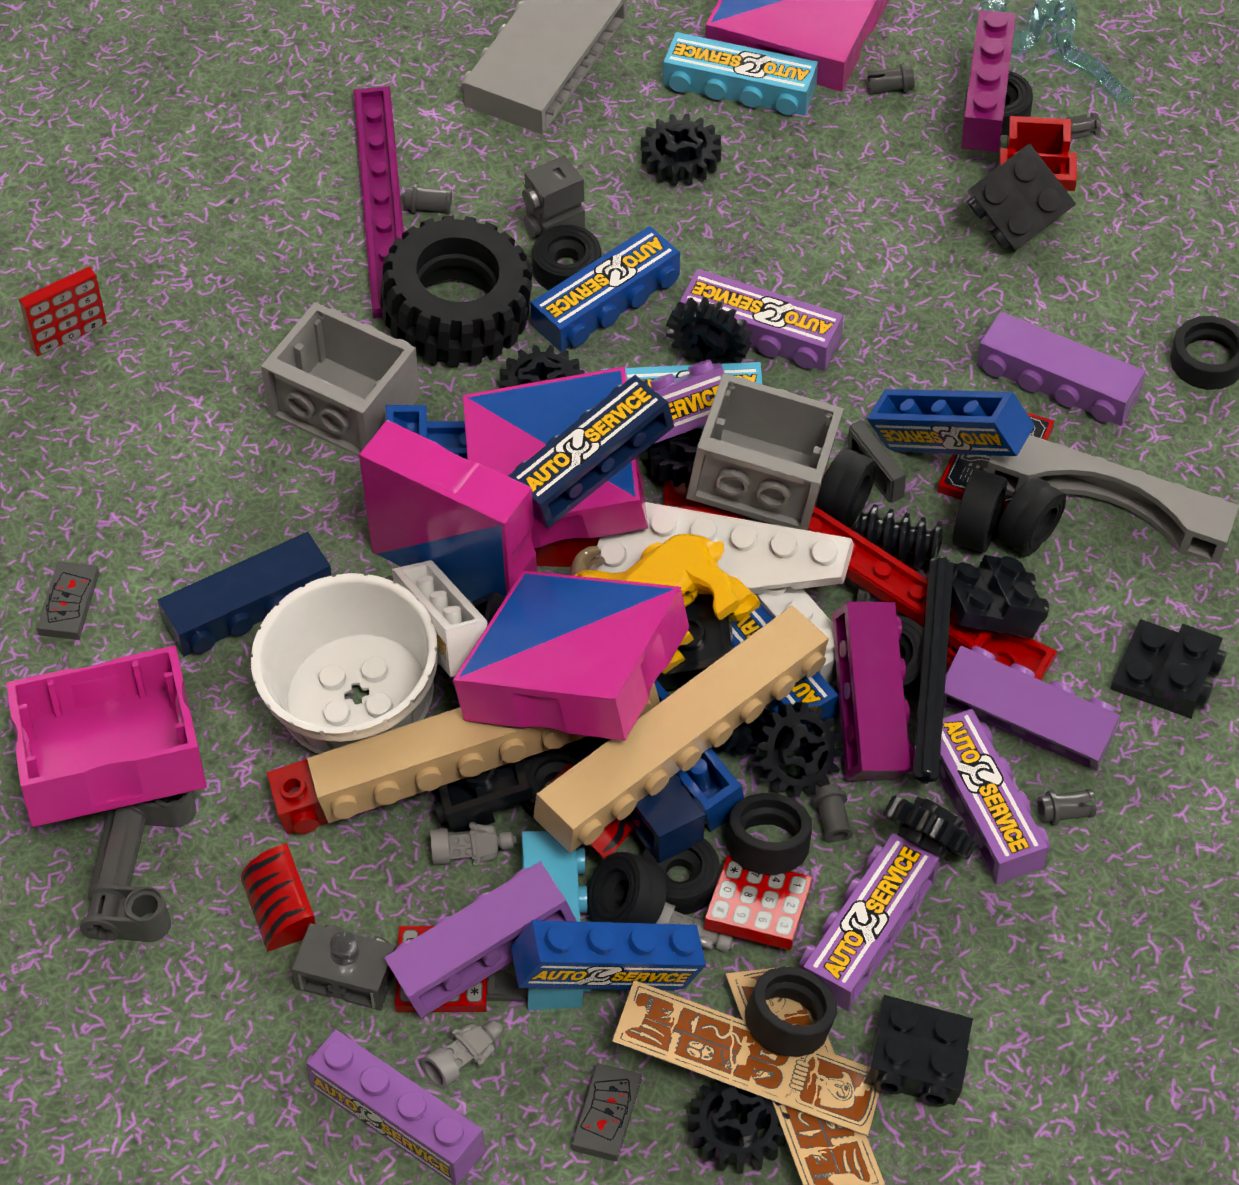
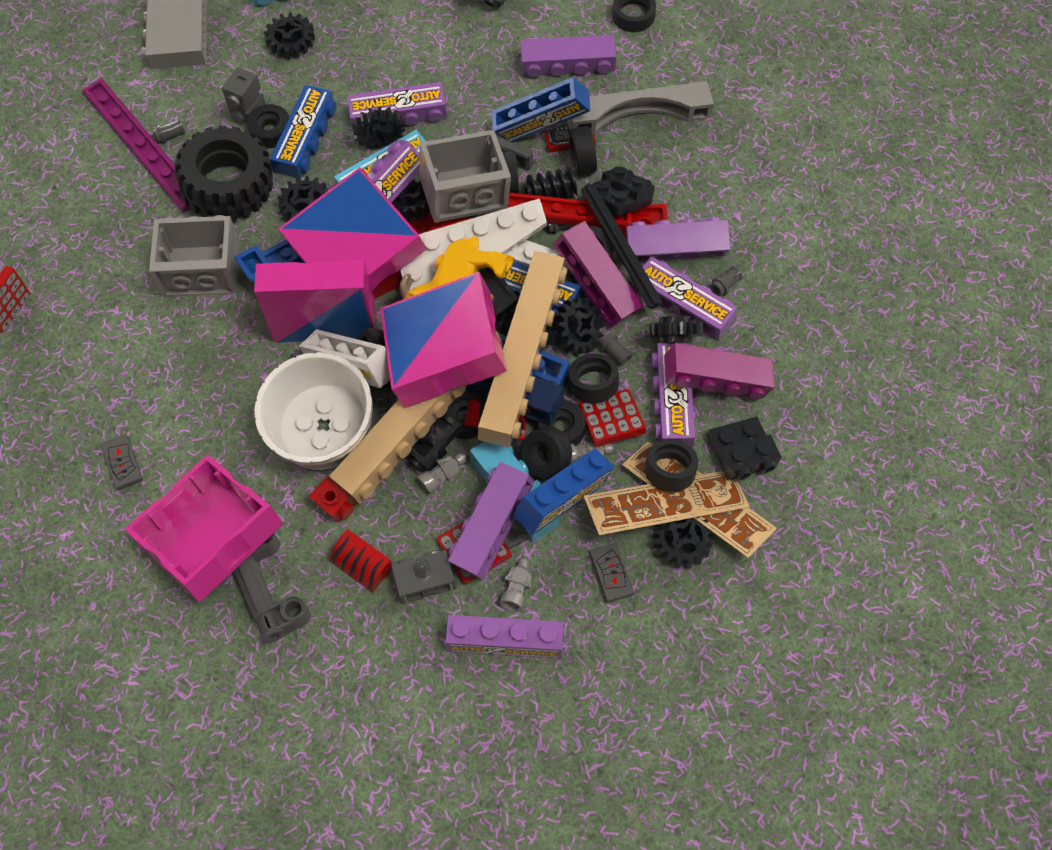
camera: 30 degrees left, 10 degrees up
(240, 594) = (223, 404): dark blue brick -> none
(594, 449) = (378, 219): dark blue brick -> none
(952, 920) = (718, 371): none -> magenta brick
(1031, 516) = (609, 140): black tyre -> none
(1170, 667) = (726, 182): black plate -> none

